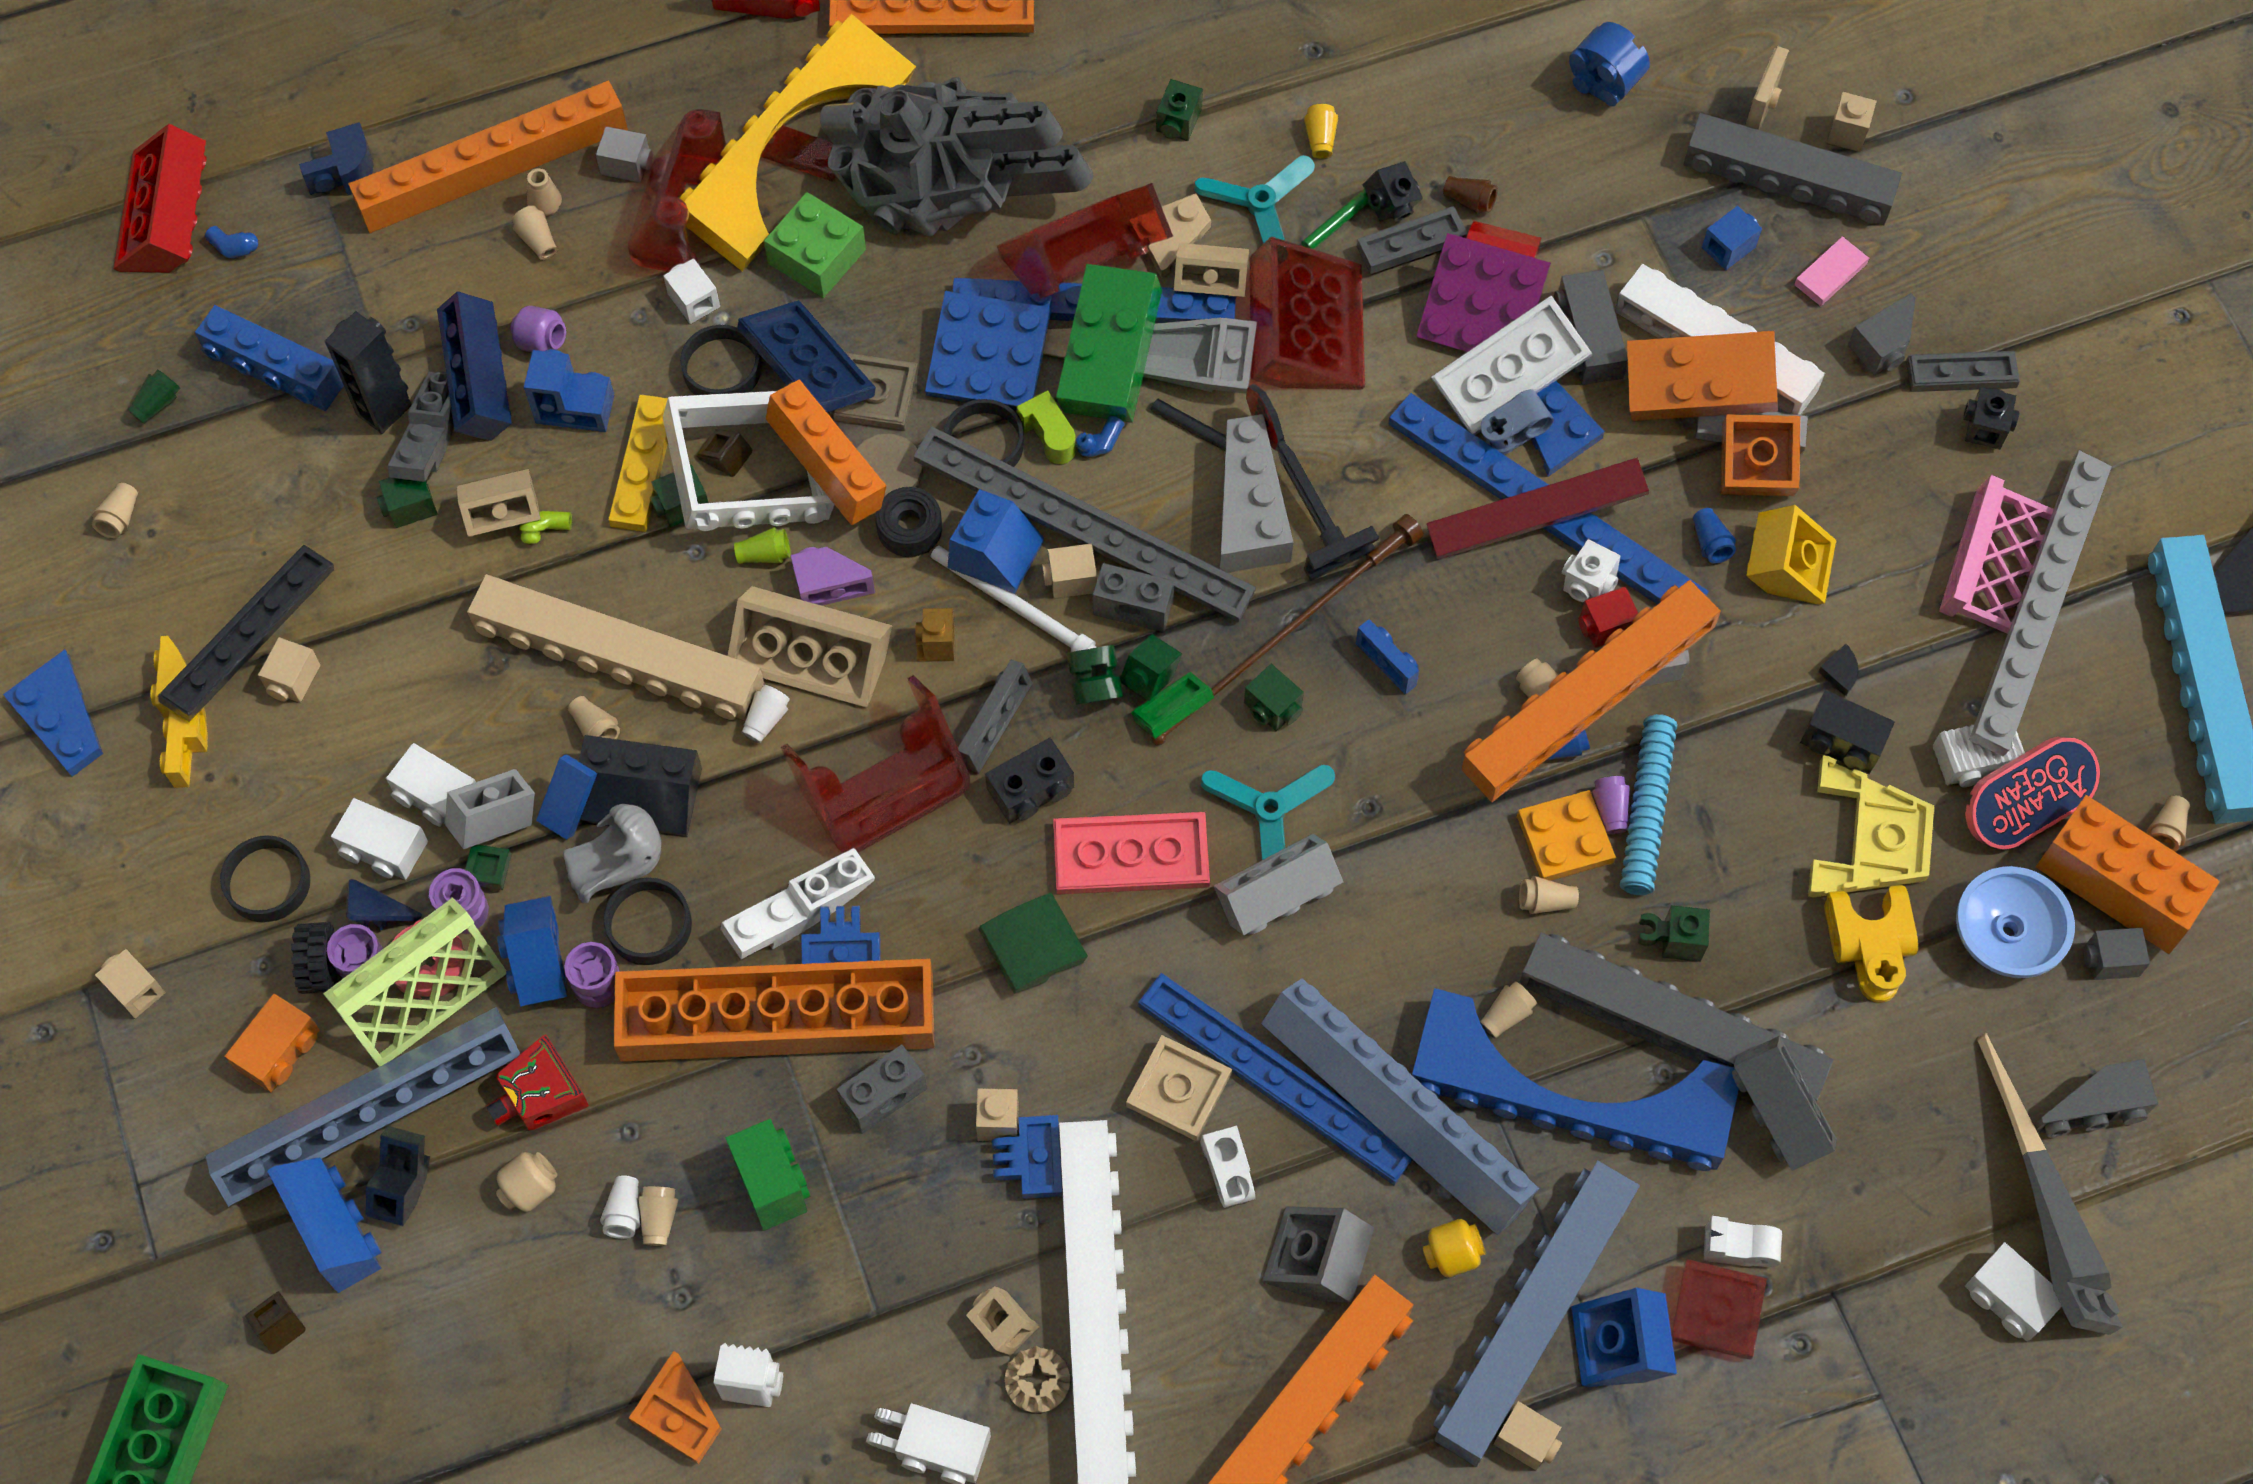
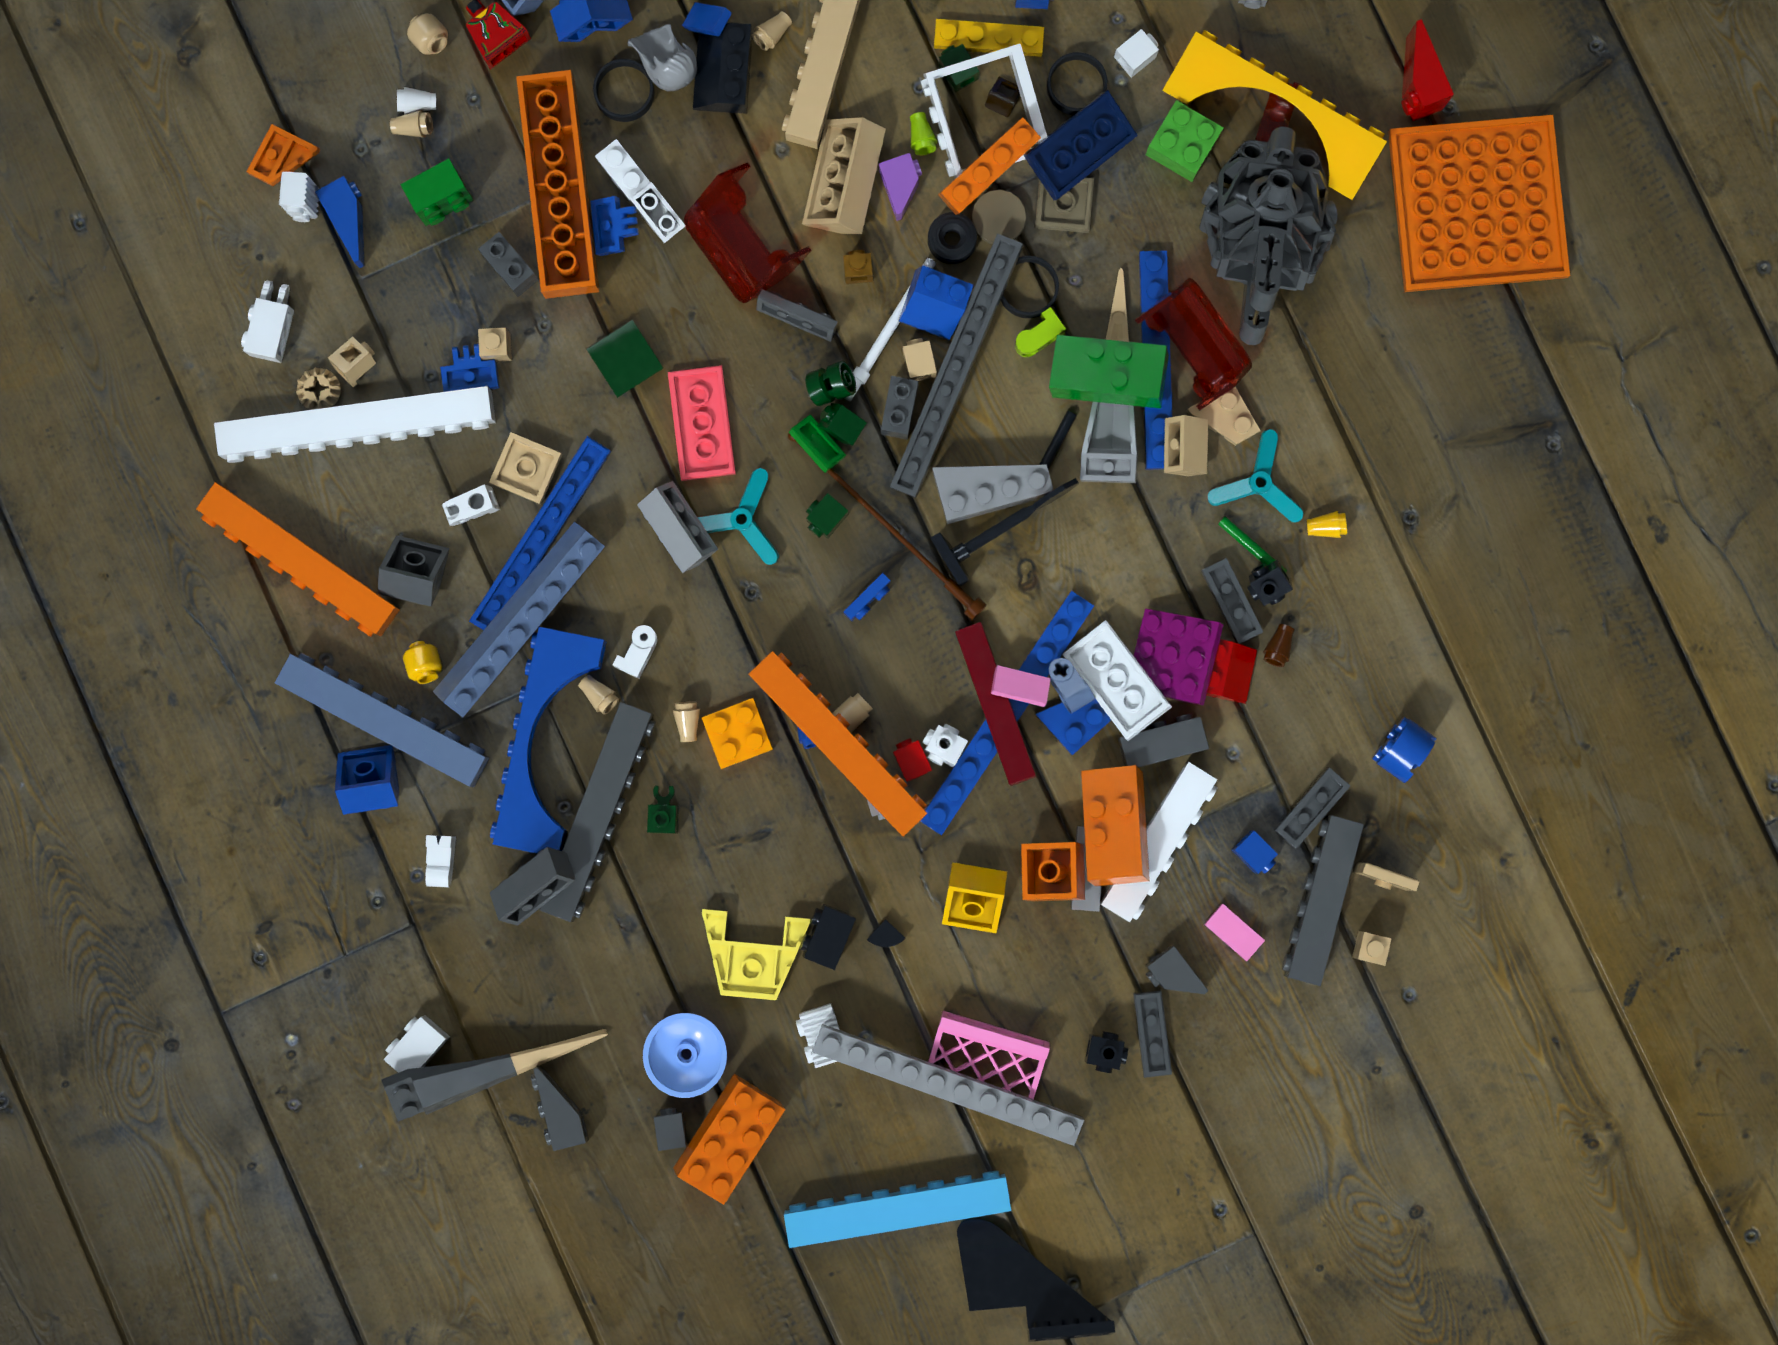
camera: 90 degrees right, 20 degrees up
(592, 974) = (576, 55): medium lavender wheel -> none
(660, 224) = (1187, 16): clear red windscreen -> none
(764, 713) = (788, 151): white cone -> none
(782, 1317) = (346, 214): none -> blue slope
(987, 350) = (1102, 282): blue plate -> none
(1030, 781) = (747, 345): black brick -> none
(1100, 443) = (1033, 374): blue arm -> none
(1179, 110) = (1334, 411): dark green brick -> none
(1306, 318) = (1152, 523): clear red slope -> none
(1450, 951) = (639, 653): none -> white leg
(1516, 474) = (1020, 686): none -> bright pink tile
(1529, 1437) = (296, 716): tan brick -> none
(1612, 803) = (762, 766): medium lavender cone -> none
(1648, 805) = (763, 792): medium azure piece -> none
(1676, 174) = (1312, 808): none -> dark grey plate
(1714, 538) = (988, 838): blue cone -> none
(1718, 1309) = (393, 844): clear red plate -> none
(1873, 944) = (665, 955): yellow piece -> none
(2032, 792) = (790, 1072): tile -> none
(2171, 823) = (775, 1174): tan cone -> none

